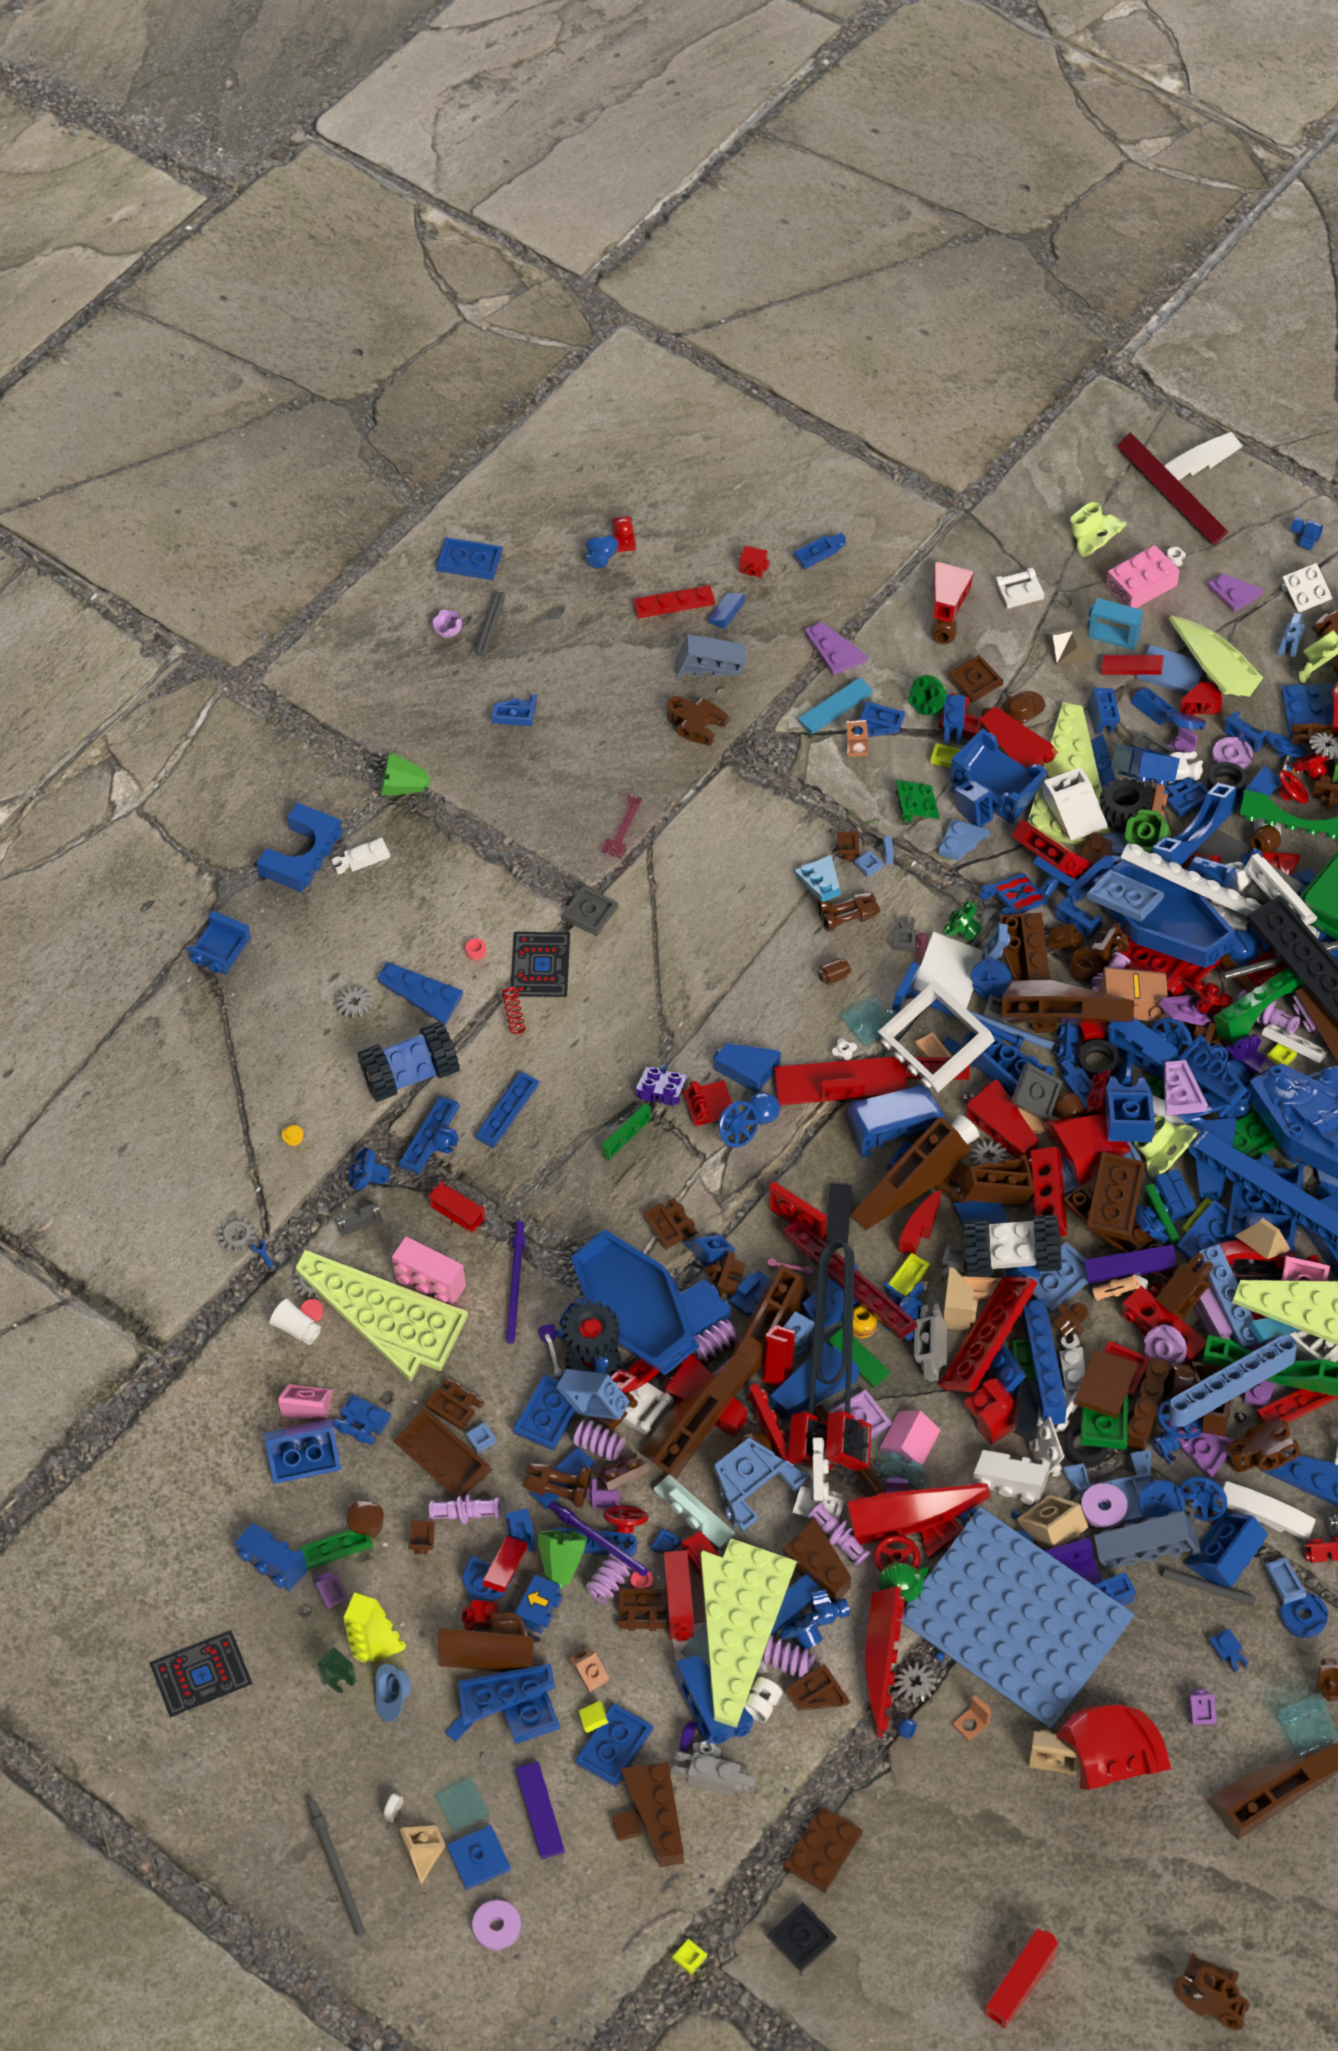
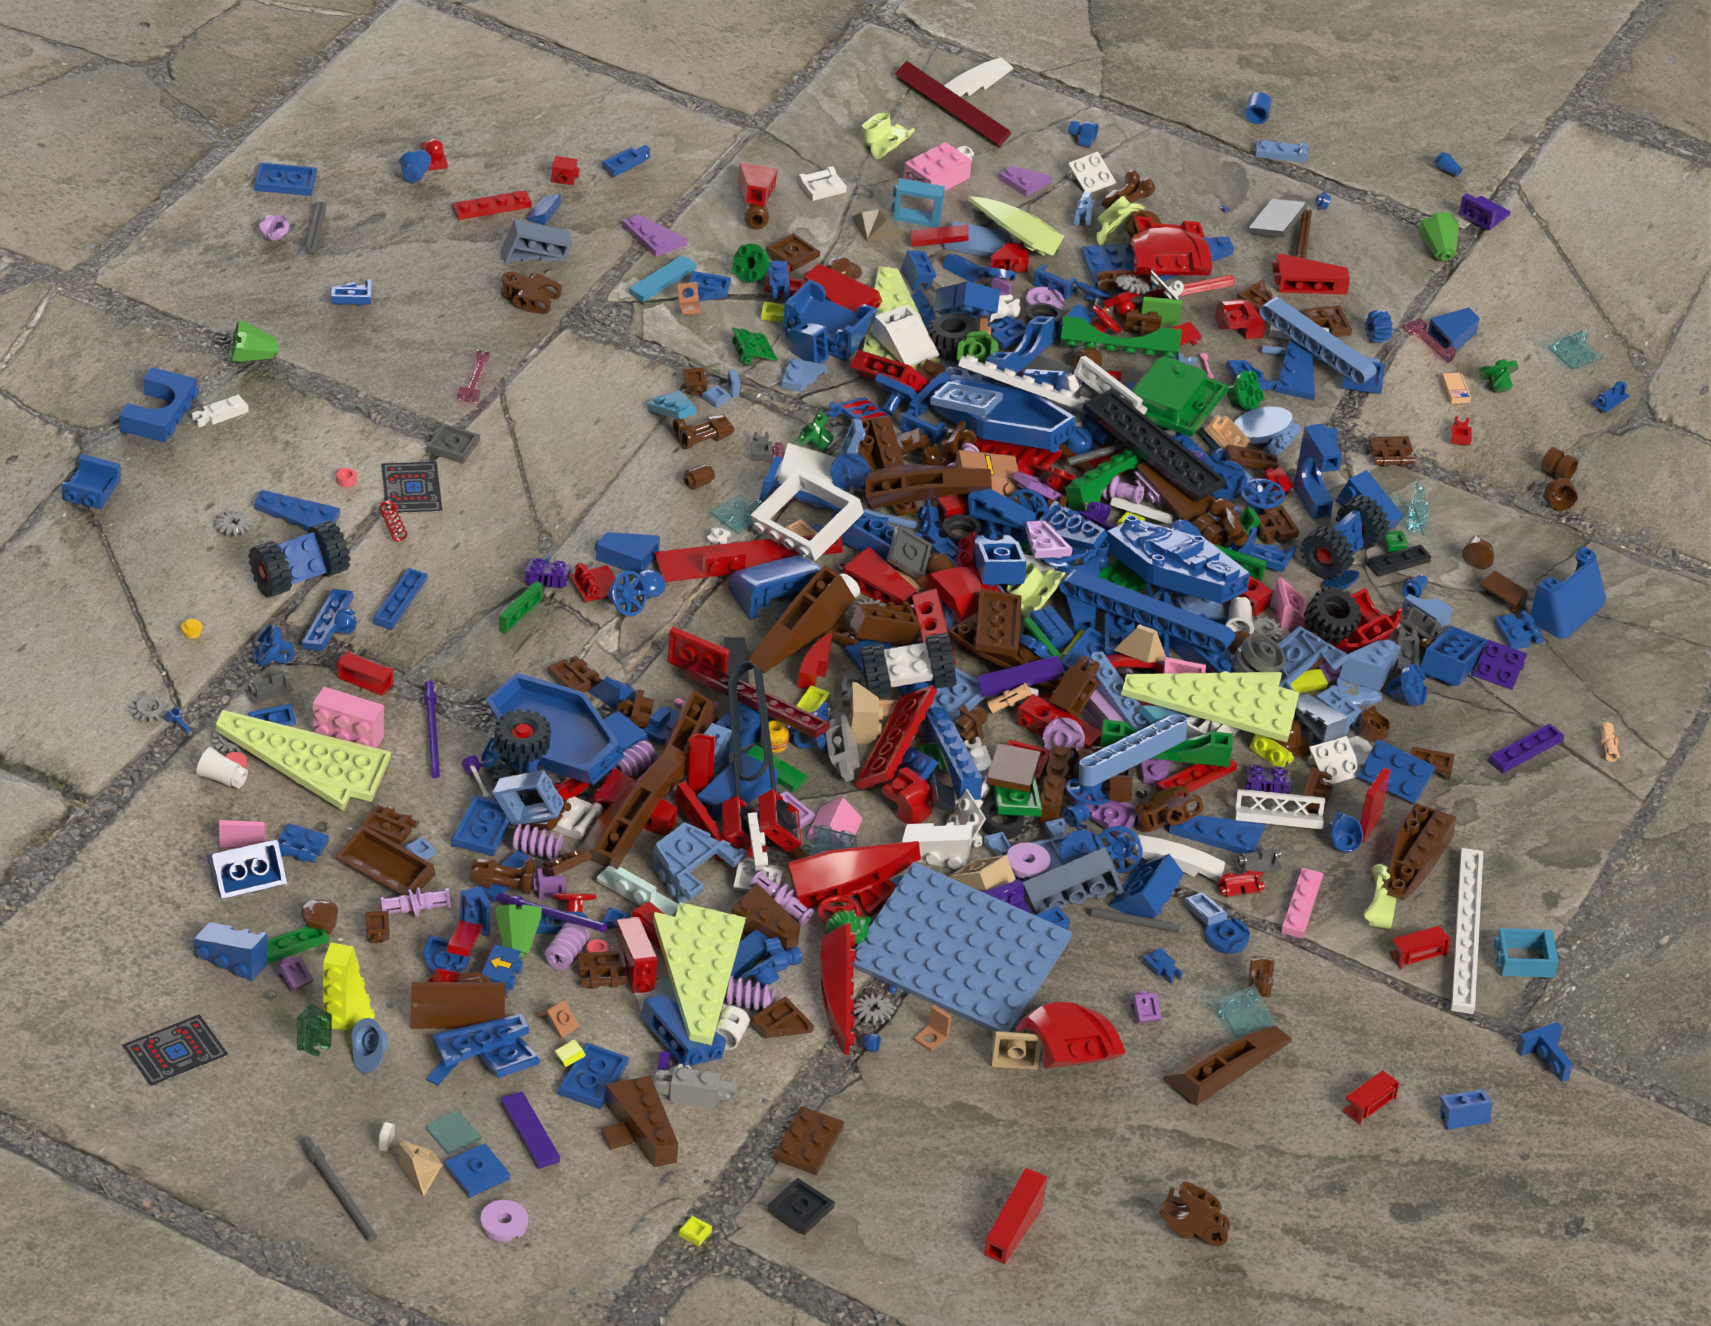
camera: 15 degrees left, 15 degrees down
(358, 1256) = (280, 715): none -> blue slope

